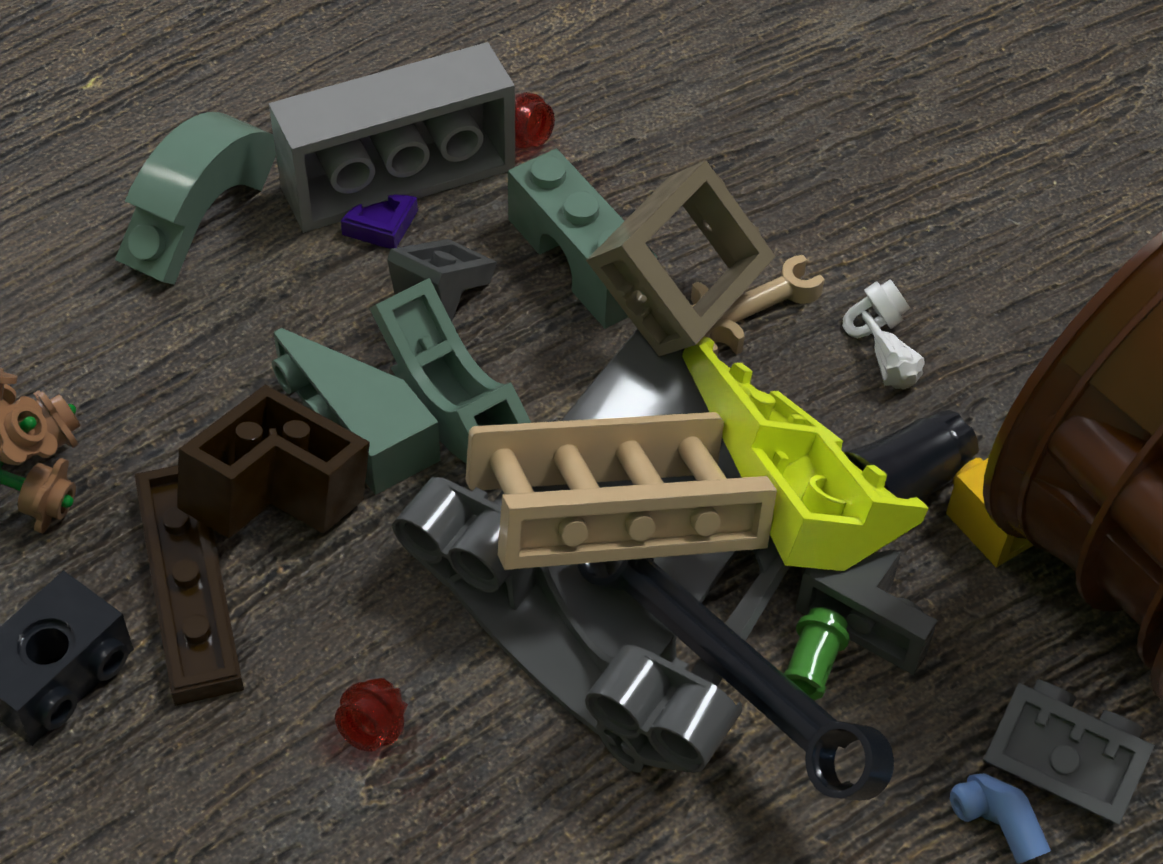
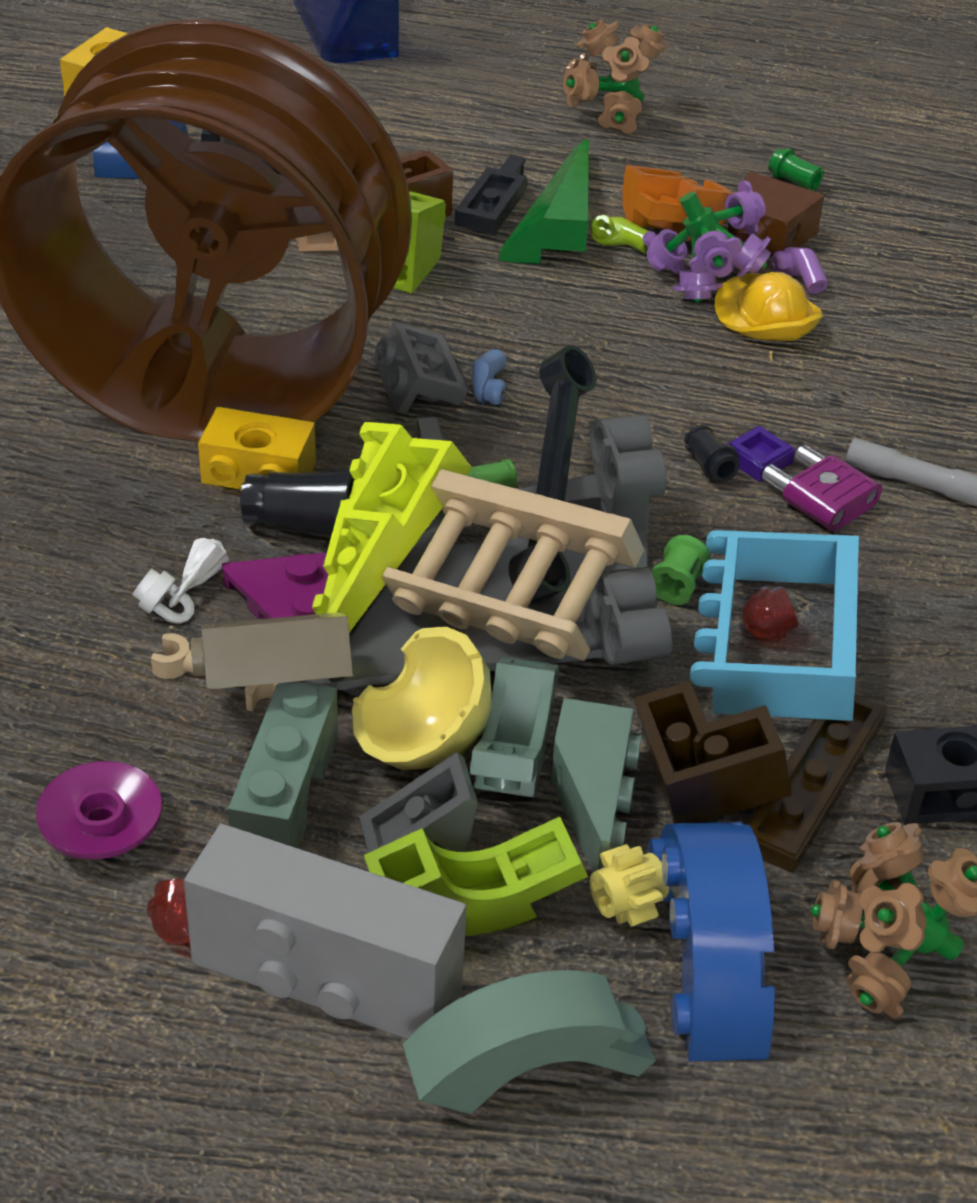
camera: 135 degrees left, 10 degrees down
(154, 336) = (724, 929): none -> blue brick
(239, 341) = (628, 885): none -> light yellow gear
(322, 790) = (783, 689): none -> medium azure hinge
(351, 262) = (491, 882): none -> lime arch
(510, 694) = (680, 568): none -> bright green bush
(532, 340) = (432, 706): none -> light yellow cylinder
(661, 131) = (99, 810): none -> magenta dish
(822, 388) = (278, 584): none -> magenta wing

